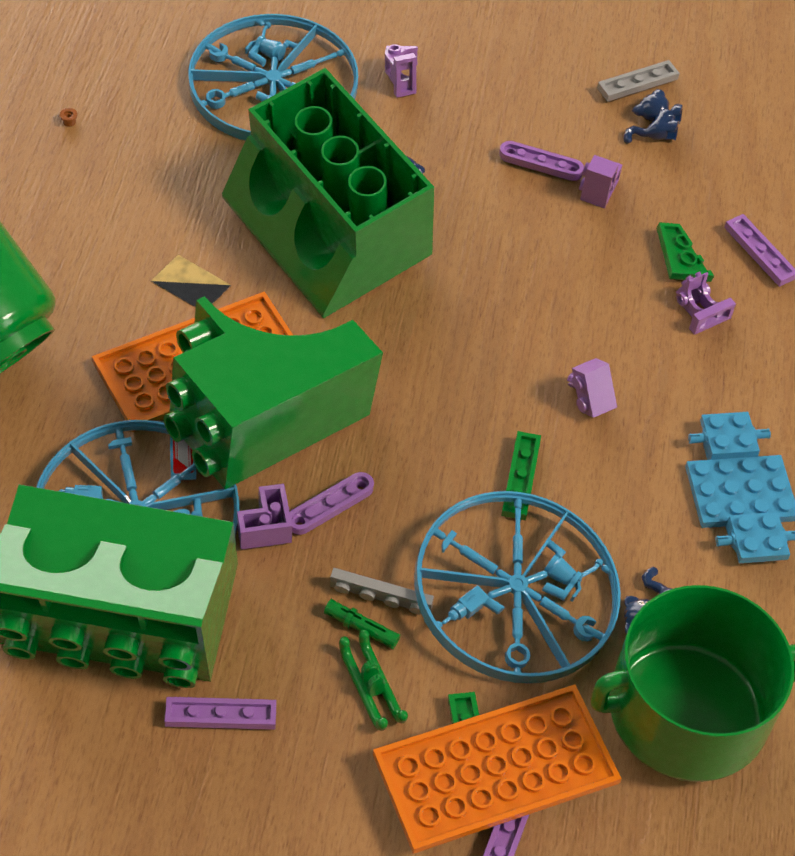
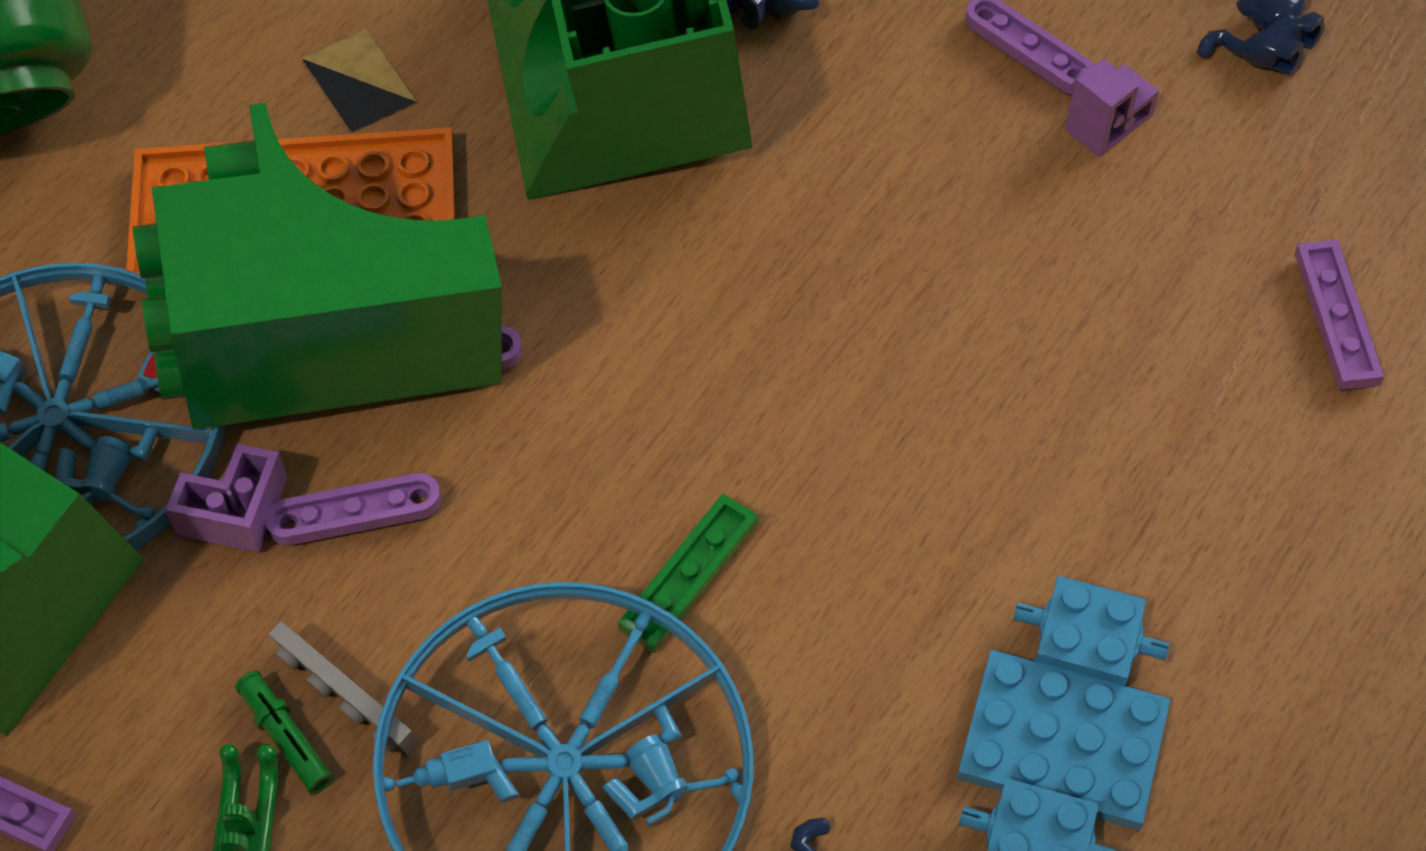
camera: 30 degrees right, 5 degrees up
(593, 387) = (886, 463): medium lavender brick -> none
(678, 254) = (1184, 278): green wing -> none
(697, 290) = (1174, 349): medium lavender tile -> none

